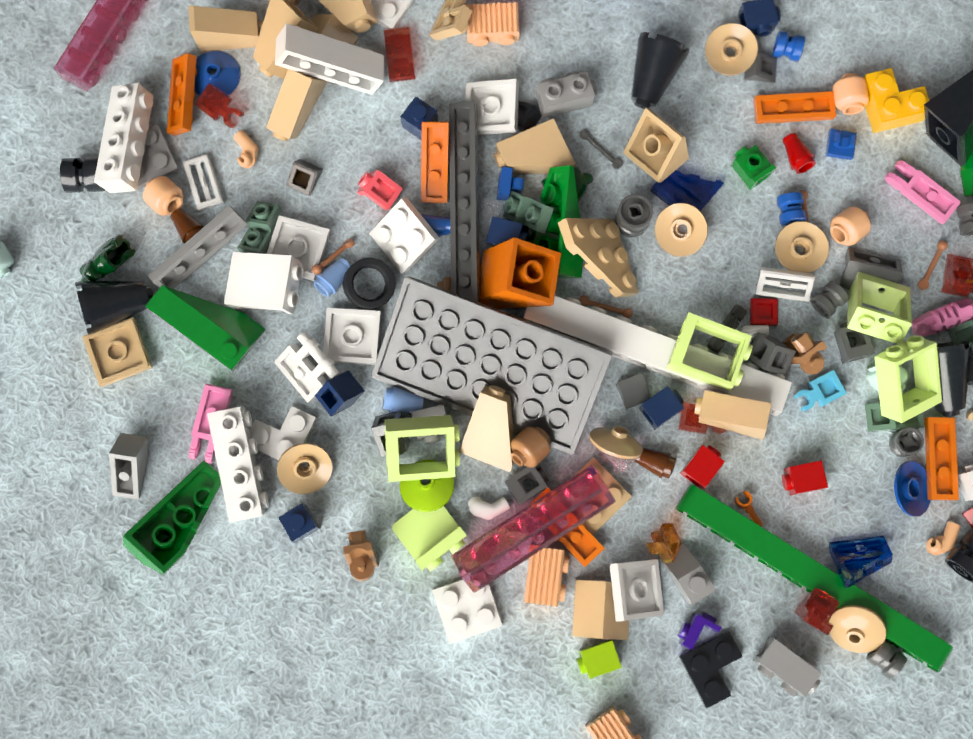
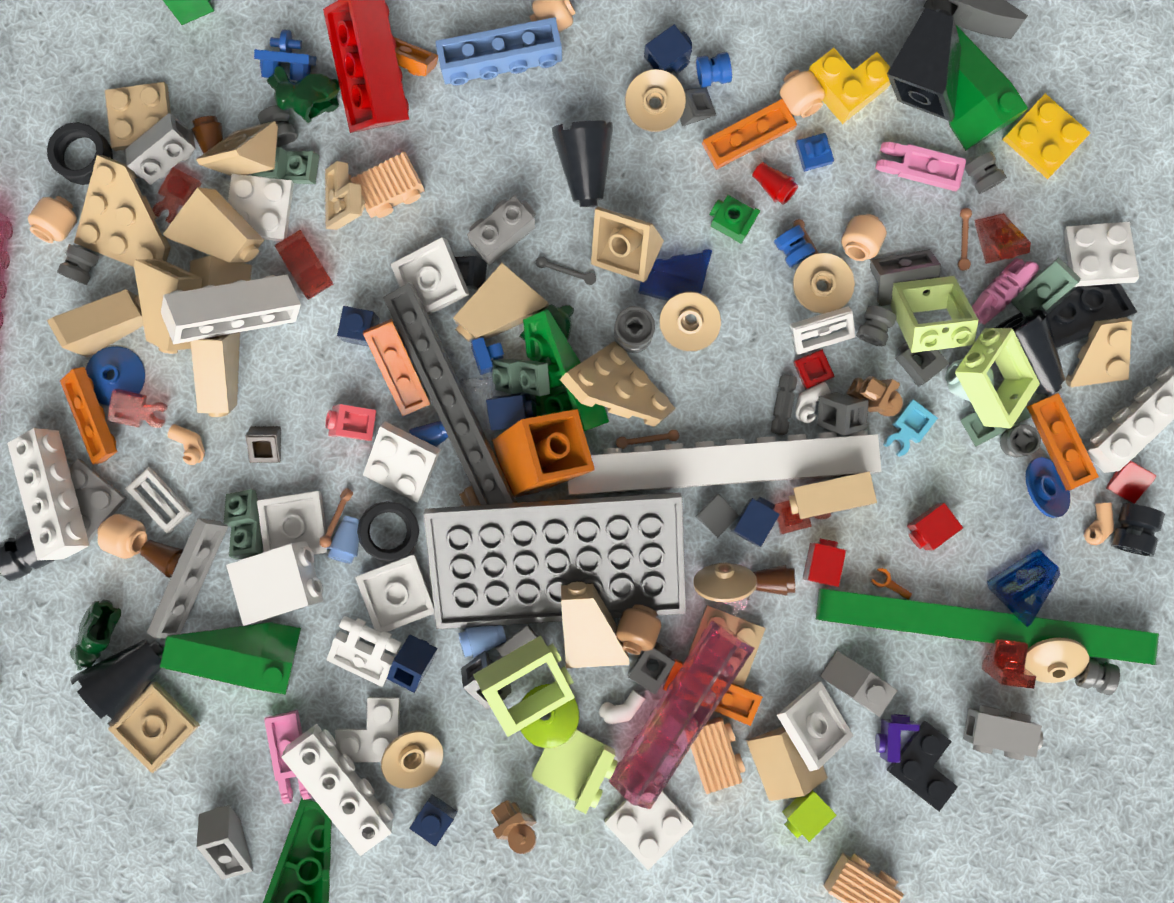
camera: 25 degrees left, 5 degrees up
(665, 543) = (823, 662): clear orange tile -> none
(718, 330) = (748, 450): yellowish green window -> none

